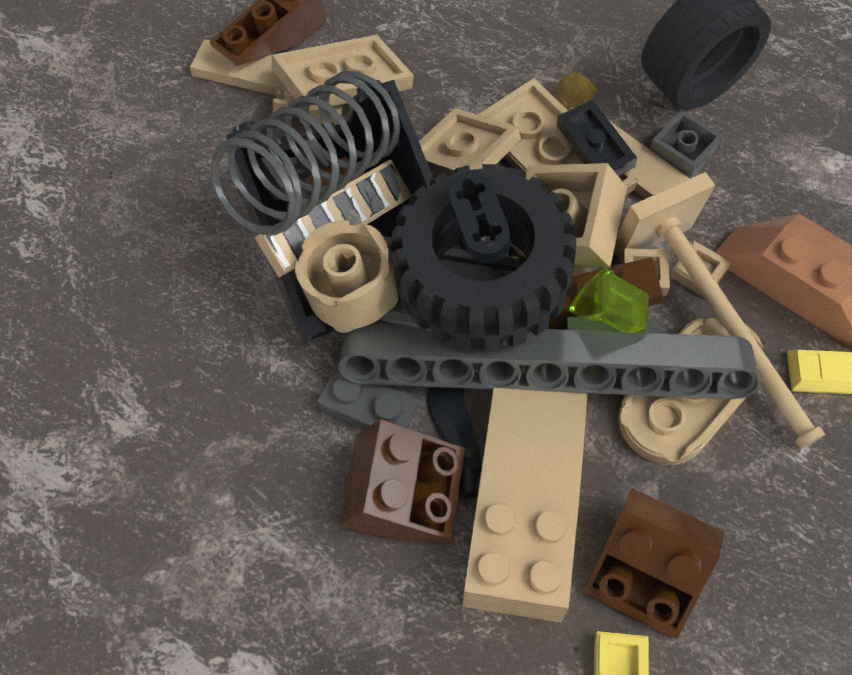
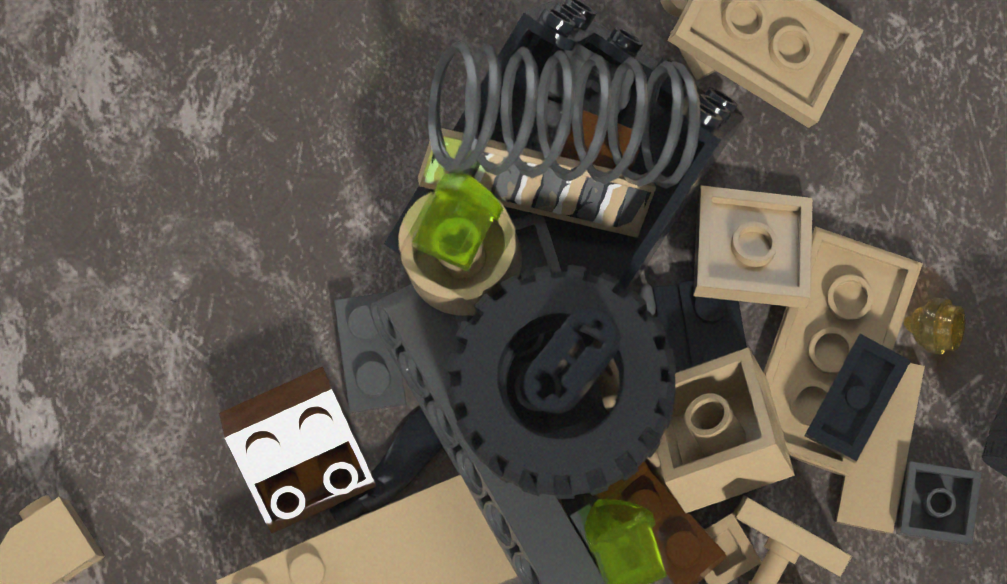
camera: 60 degrees right, 20 degrees up
(326, 243) = (457, 220): none -> clear neon green tile

